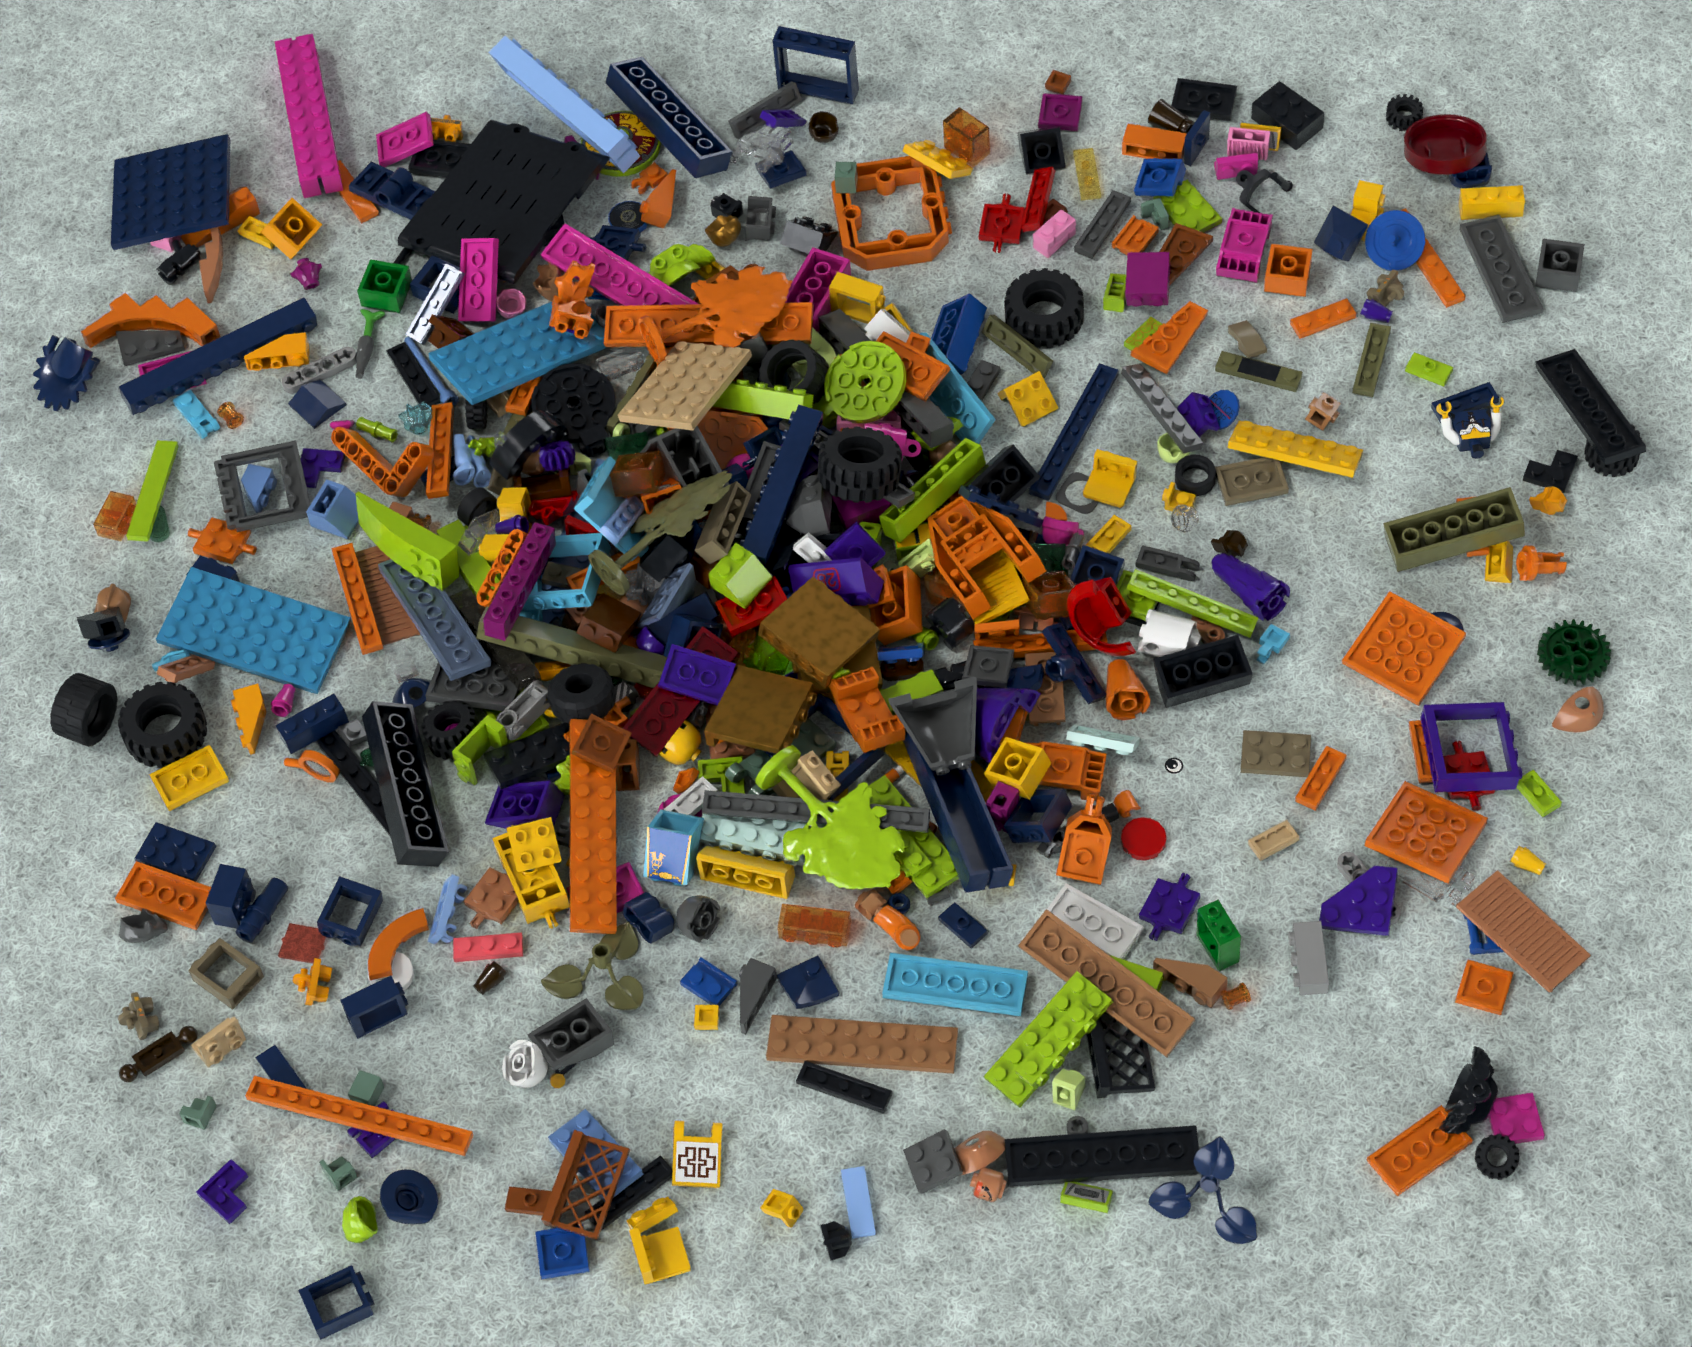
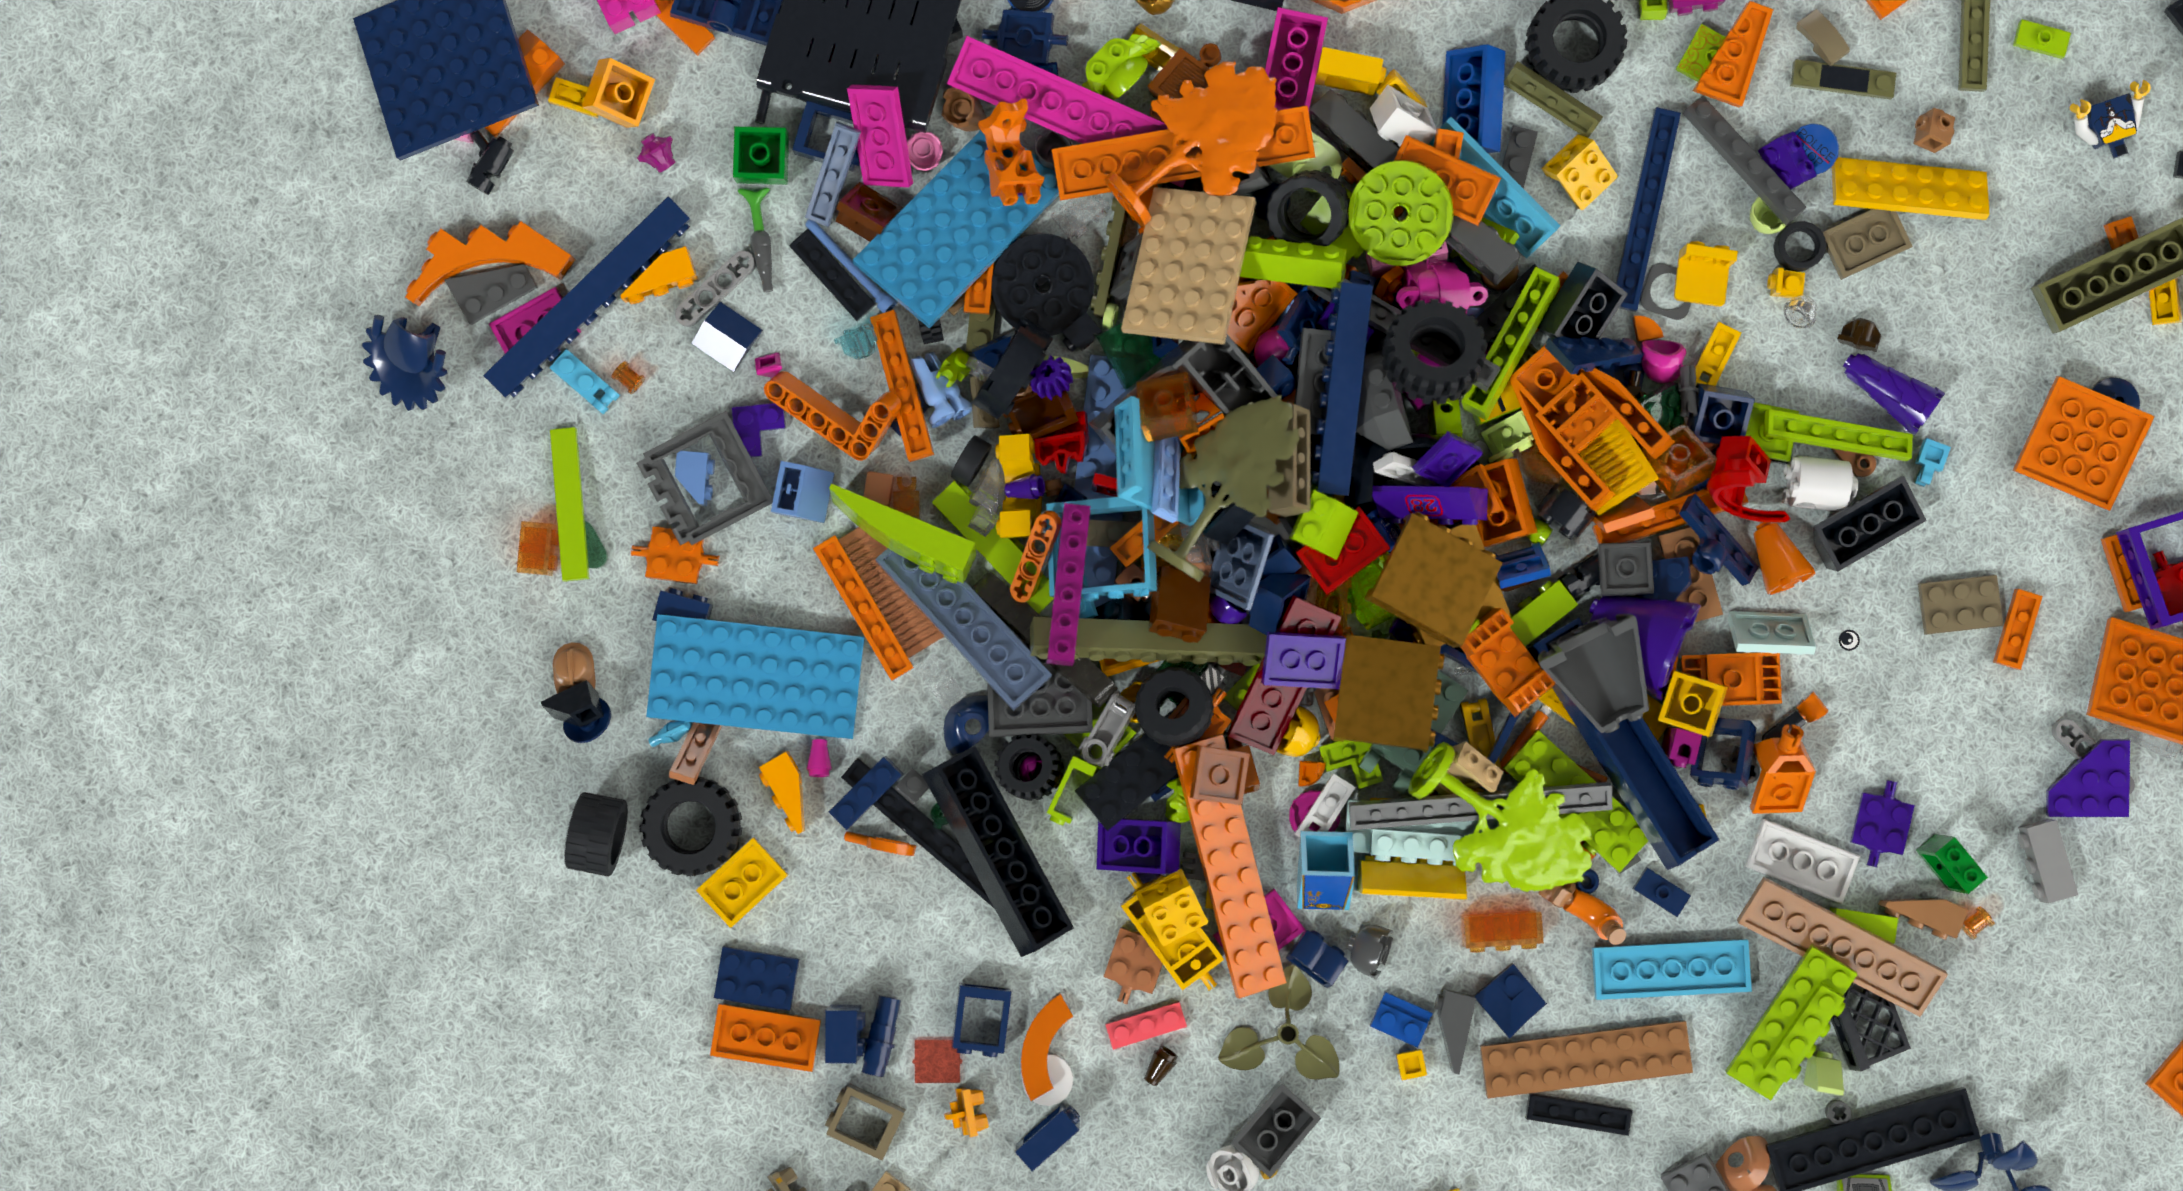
camera: 20 degrees left, 30 degrees up
(141, 927) = (753, 1085): dark grey hair -> none
(212, 266) = (533, 165): nougat slope -> none
(376, 429) = (812, 363): lime pin -> none
(446, 910) = (1086, 993): light blue plate -> none
(1143, 838) = (1836, 743): red tile -> none
(1167, 563) = (1788, 374): dark grey hinge -> none
(1273, 840) = (1980, 719): tan plate -> none
(1467, 400) = (2094, 81): dark blue plate -> none

